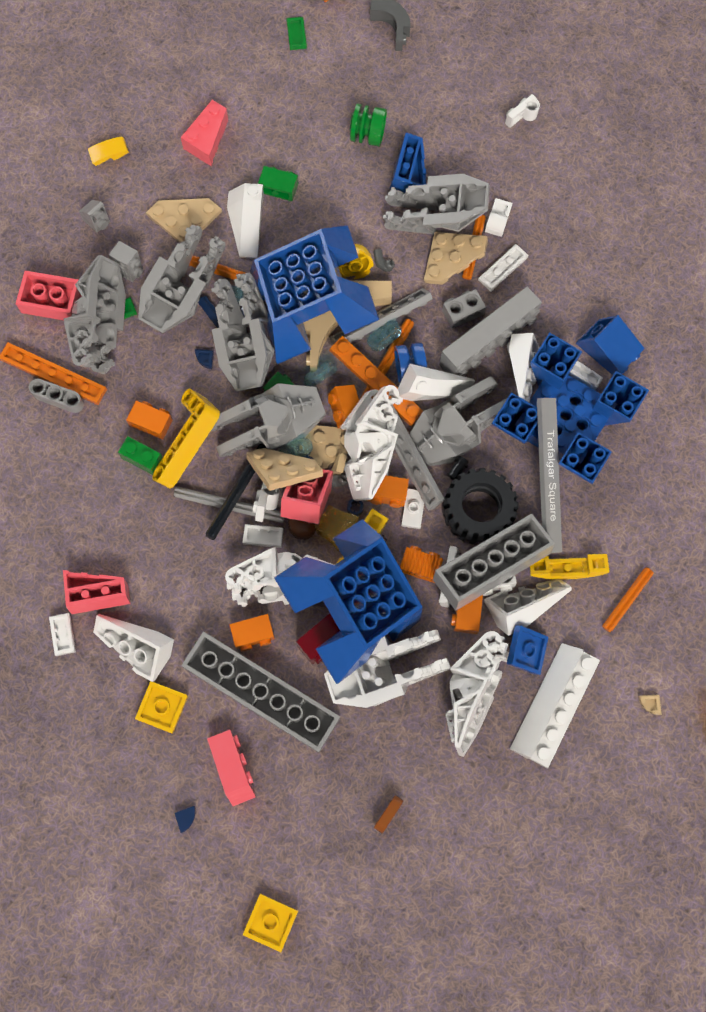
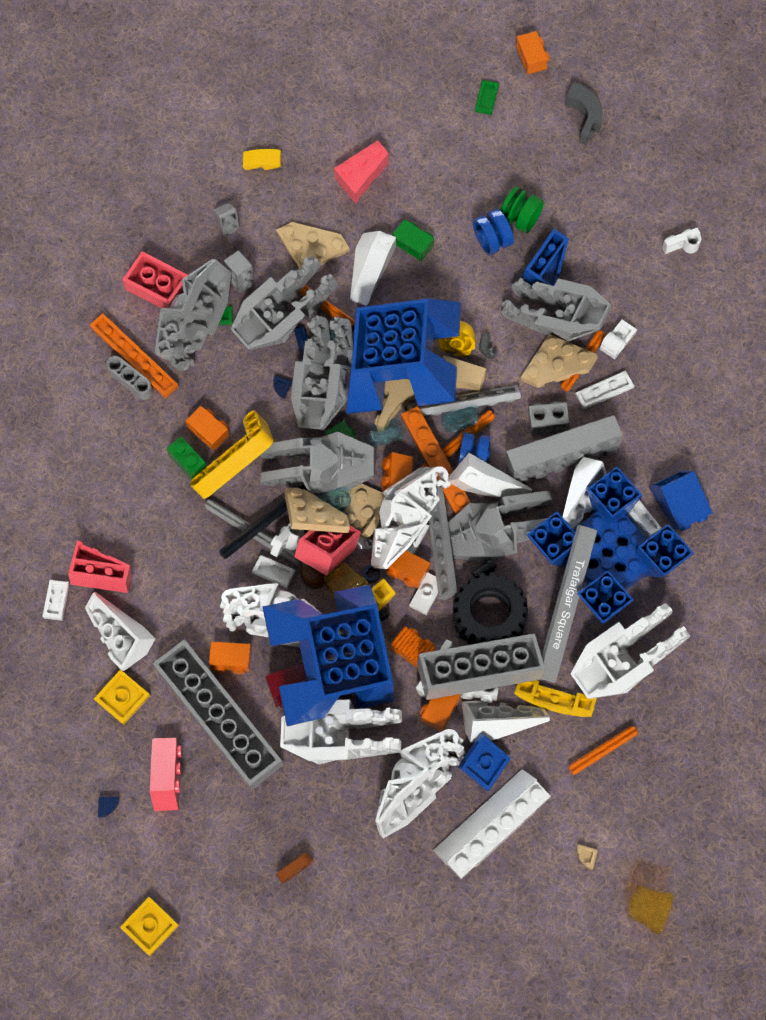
camera: 25 degrees right, 5 degrees down
(350, 152) = (493, 231): none -> blue wheel
(605, 523) = (608, 668): none -> white connector

